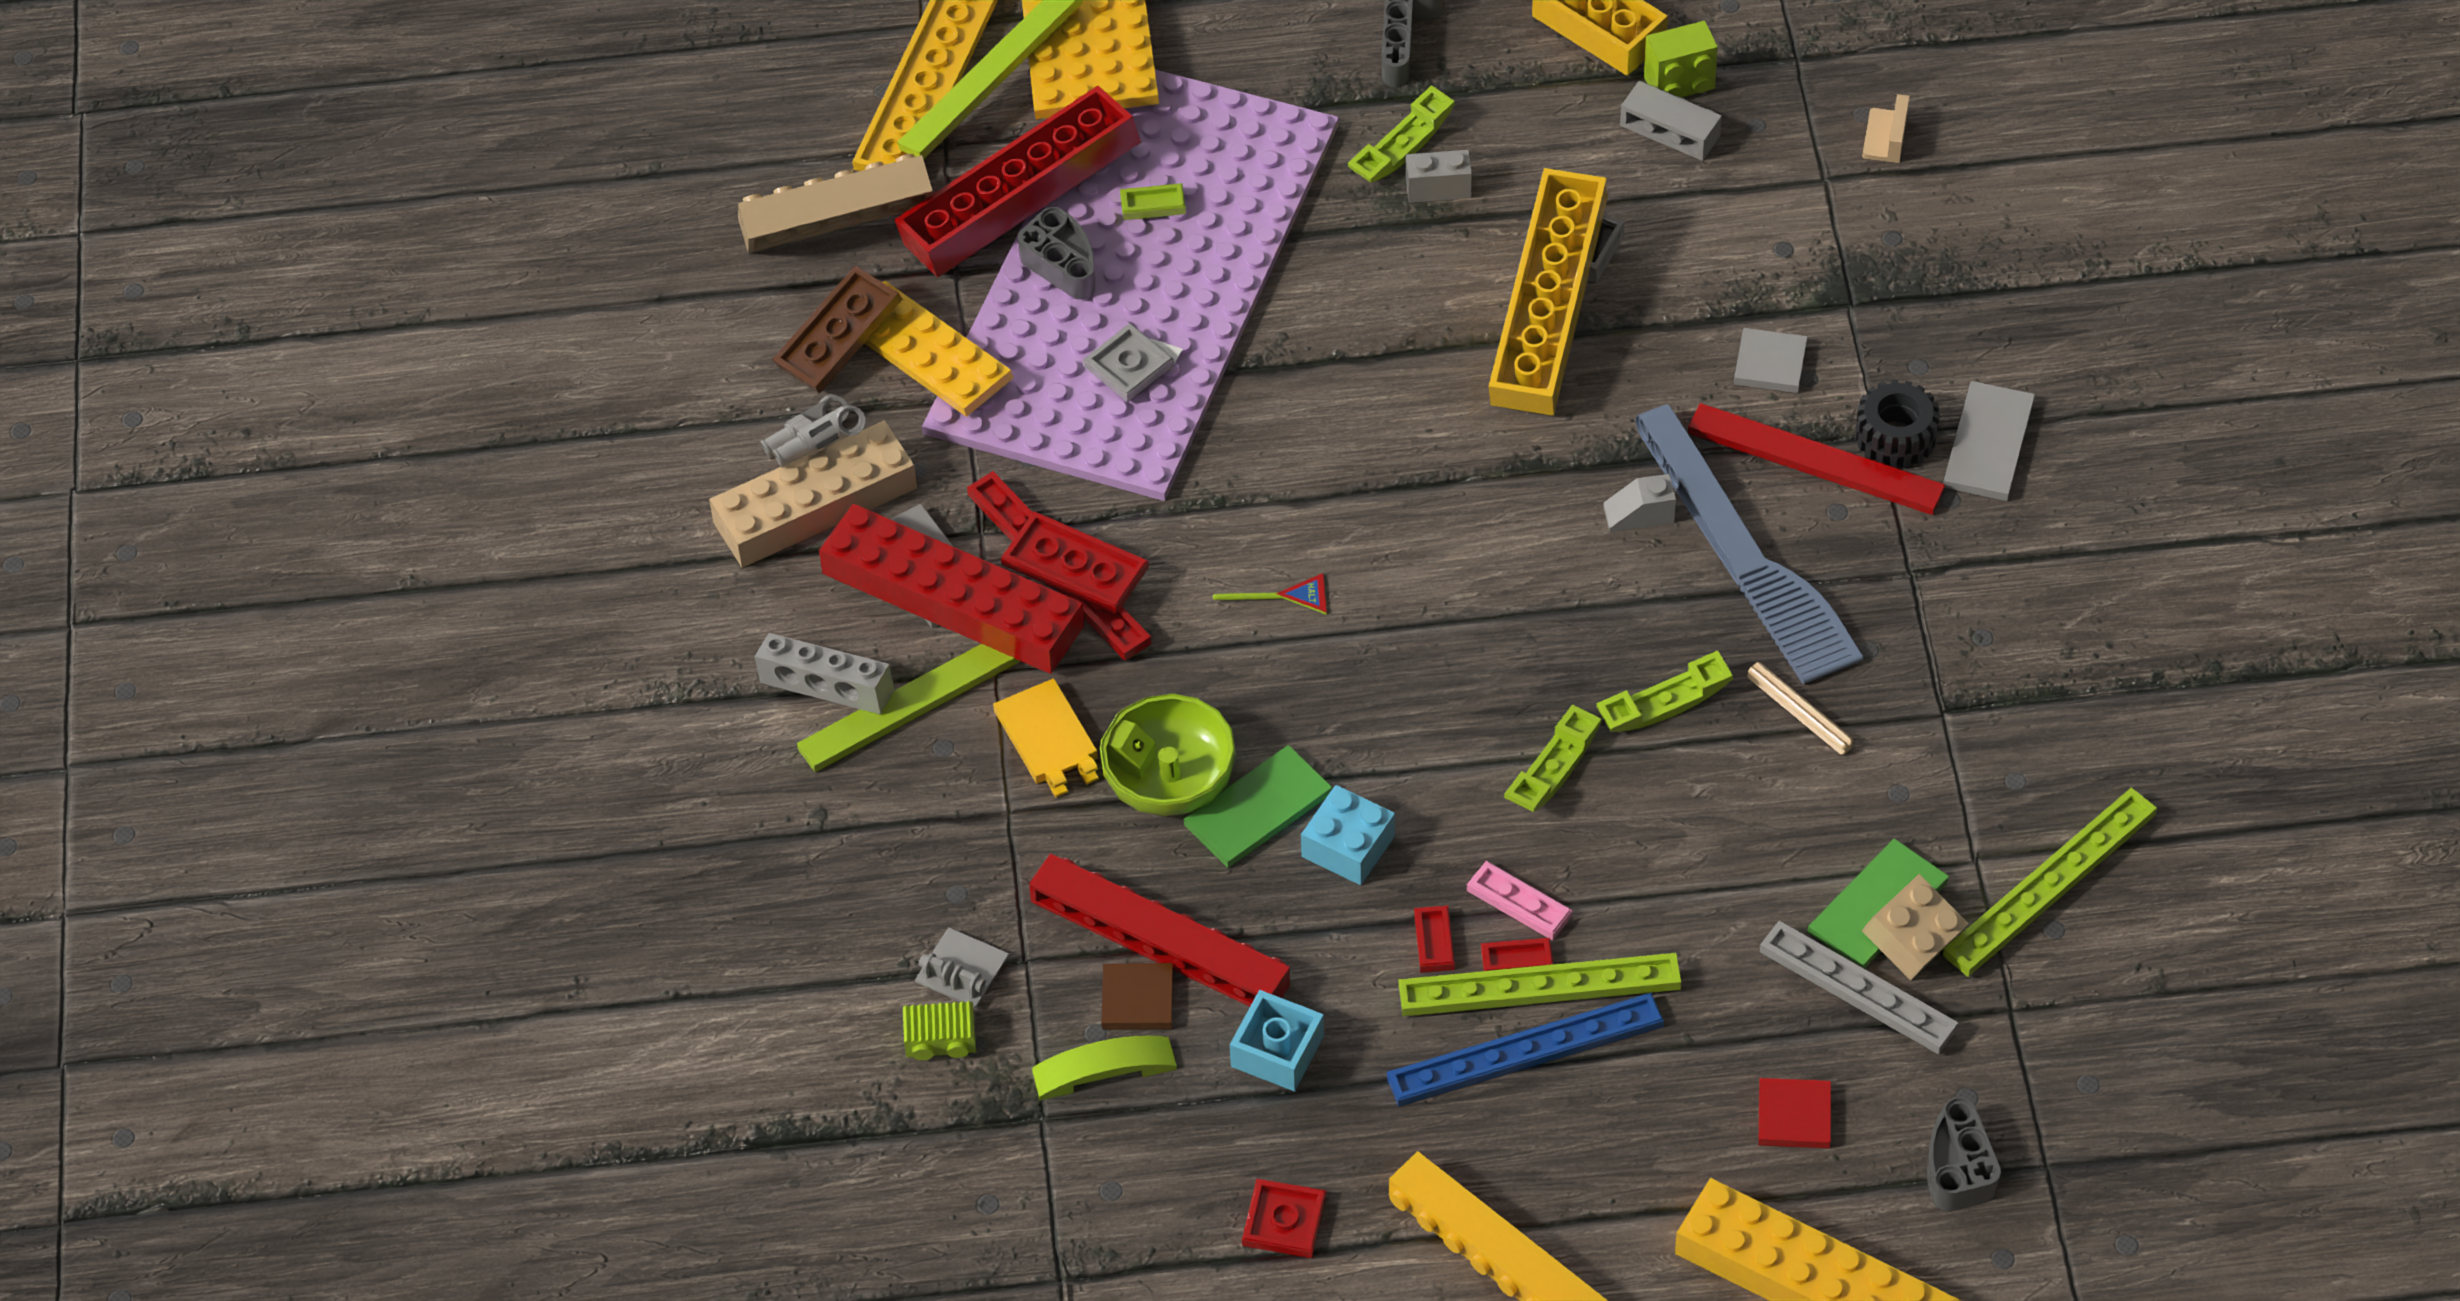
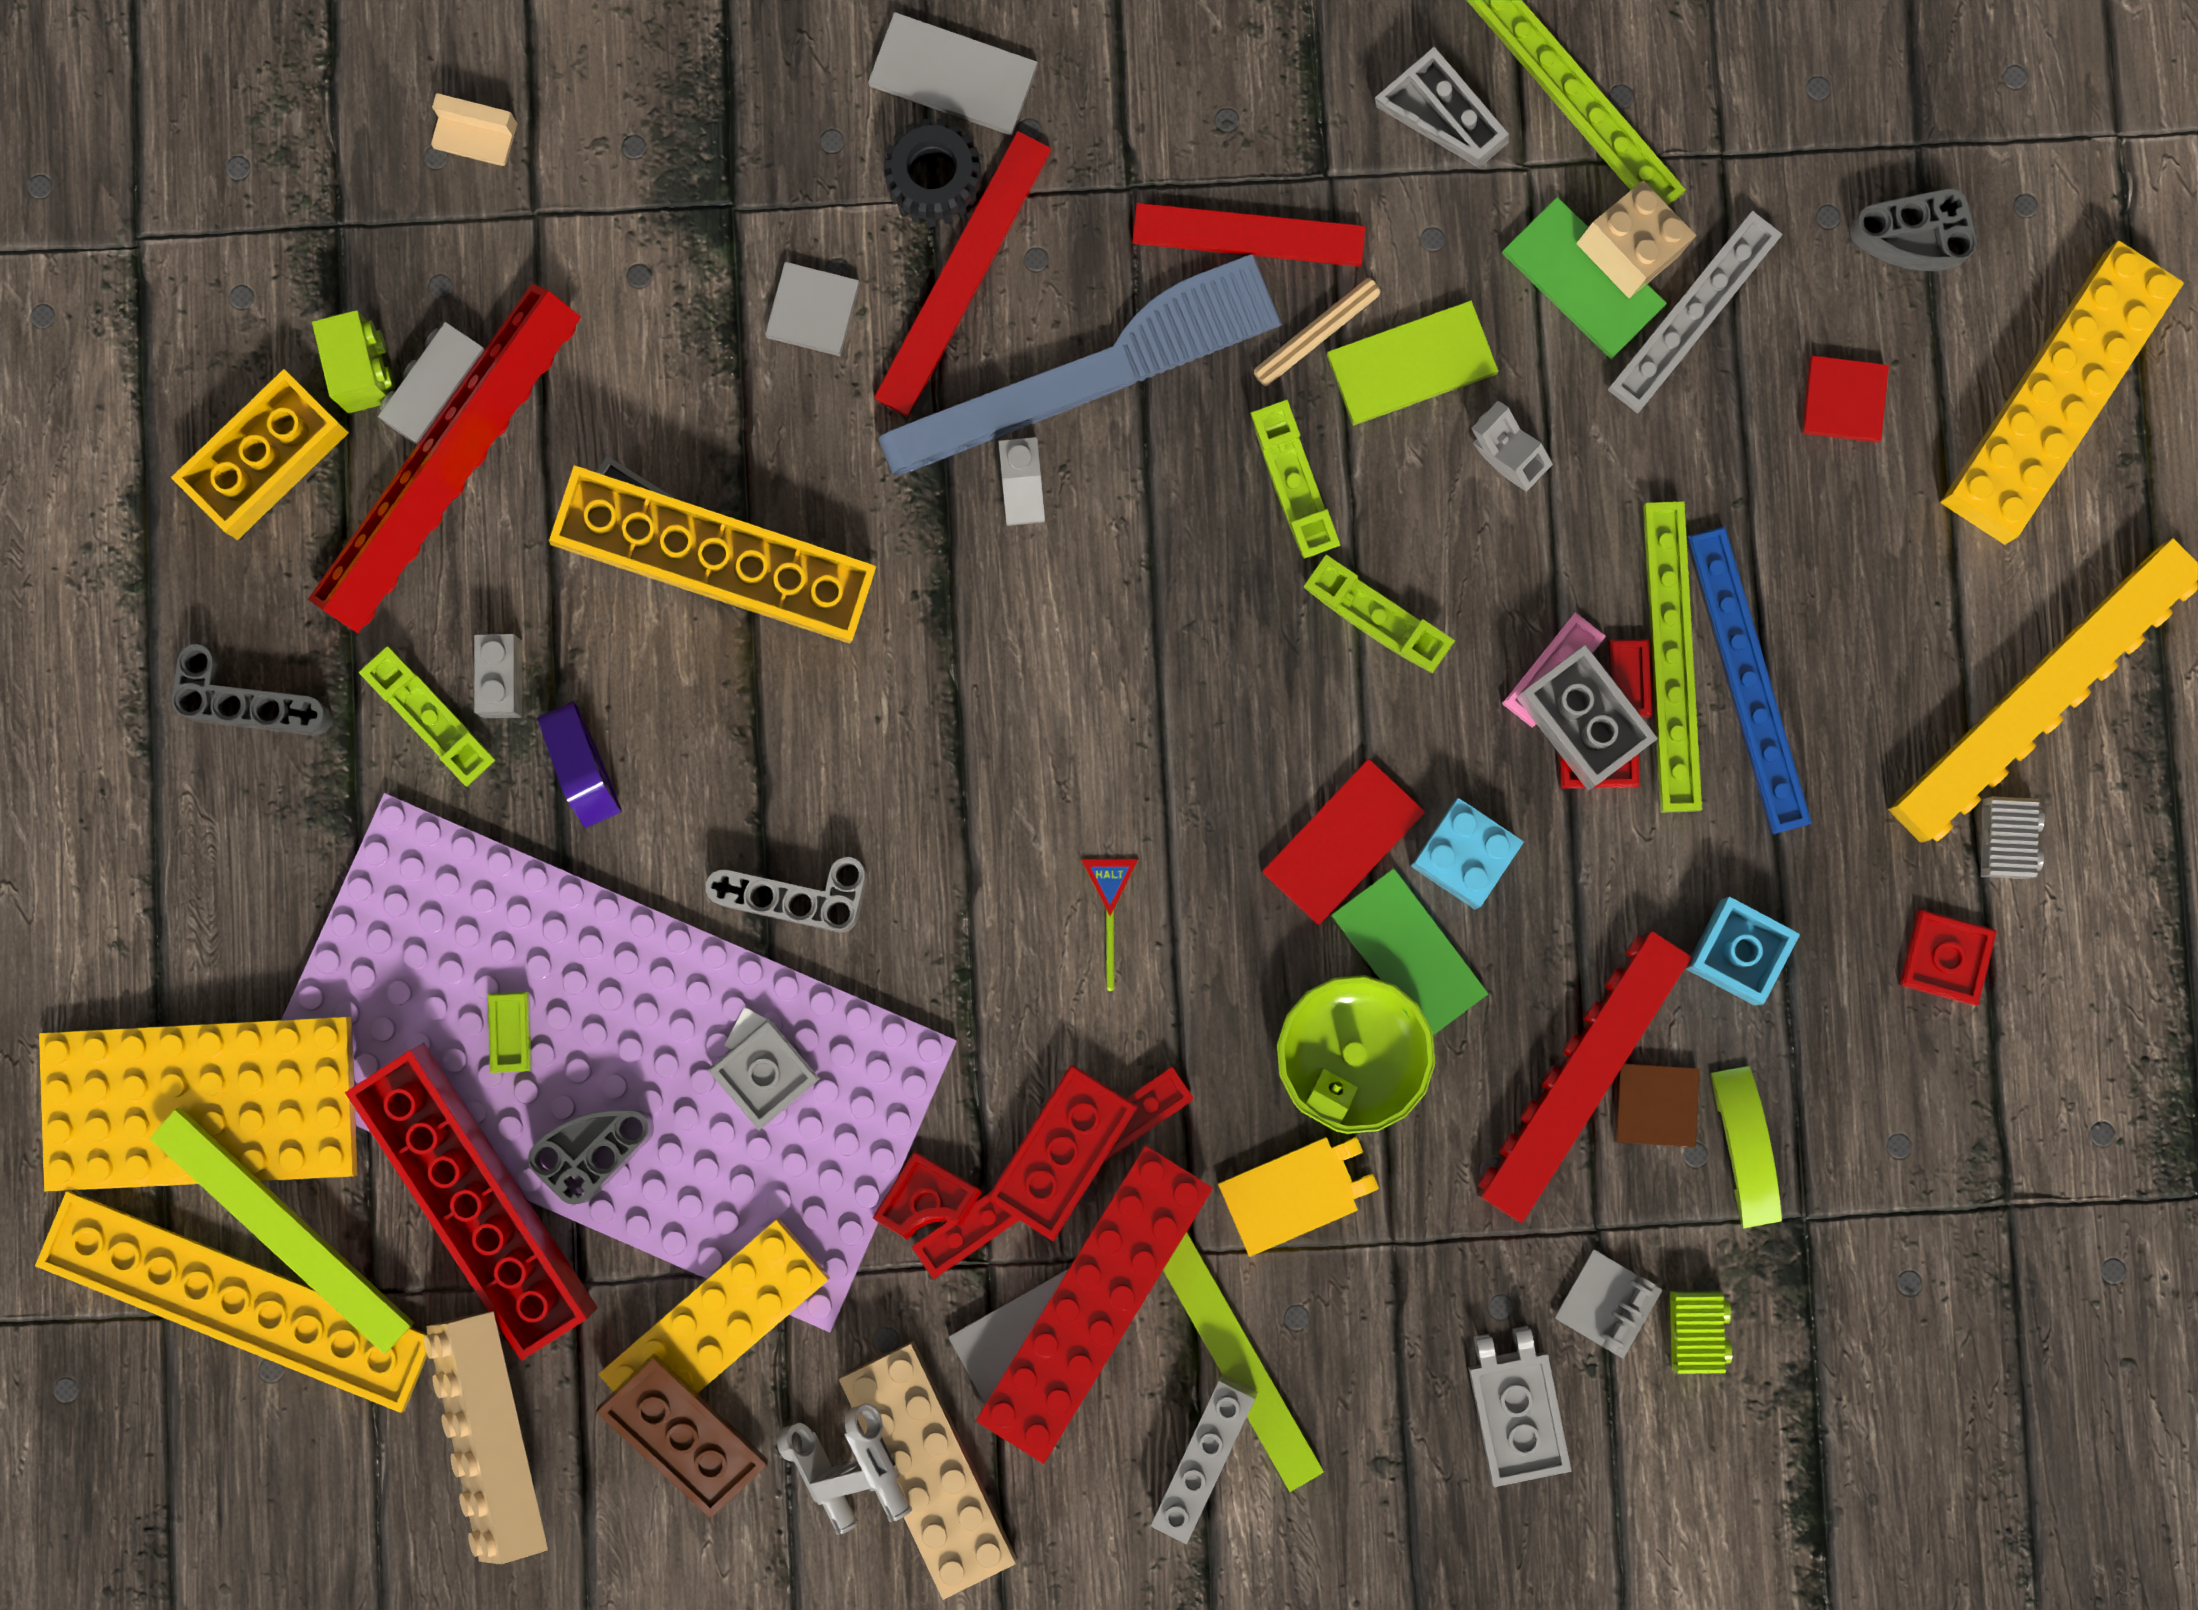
camera: 90 degrees left, 30 degrees up
(869, 903) = (1518, 1411): none -> light grey tile
(1034, 478) = (923, 1196): none -> red tile
(1269, 402) = (785, 894): none -> light grey beam
(1352, 752) = (1343, 842): none -> red tile
(1369, 228) = (578, 765): none -> dark purple beam
(1397, 1255) = (2011, 837): none -> light grey brick
(1474, 903) = (1586, 717): none -> light grey brick
(1612, 128) = (445, 458): none -> red brick
(1716, 846) = (1509, 448): none -> light grey brick
(1782, 780) = (1412, 363): none -> lime tile
(1880, 656) = (1248, 234): none -> red tile
(2013, 779) = (1444, 109): none -> light grey wedge

